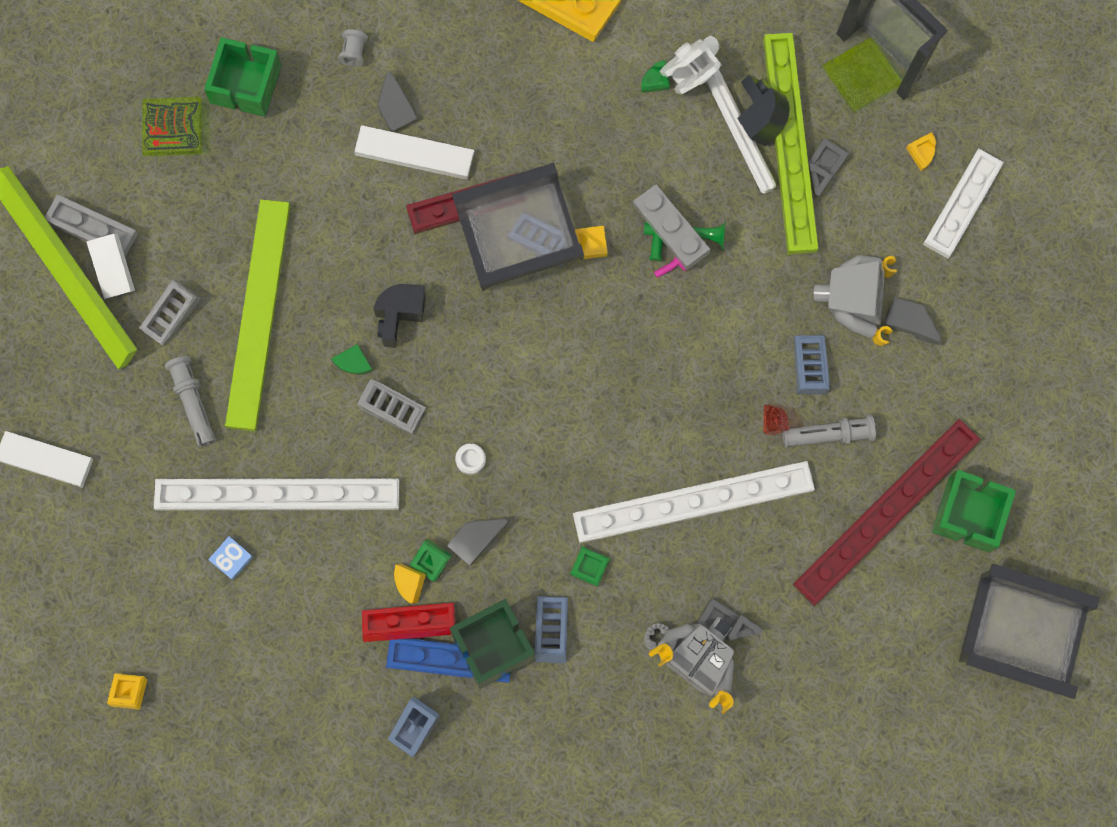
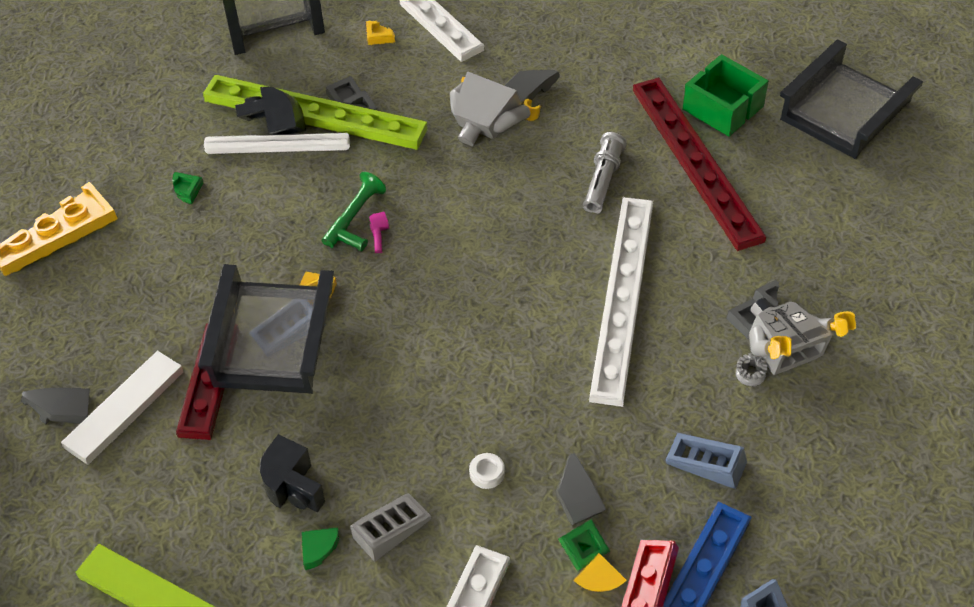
camera: 60 degrees left, 25 degrees down
(492, 644) = (710, 511): dark green piece -> none
(589, 566) = (652, 403): green tile -> none
(671, 227) = (341, 215): light grey plate -> none
(693, 64) = (197, 145): white hinge -> none
(775, 420) = (572, 205): clear red tile -> none
(811, 387) = (545, 174): sand blue slope -> none
(862, 74) = (284, 49): clear neon green tile -> none

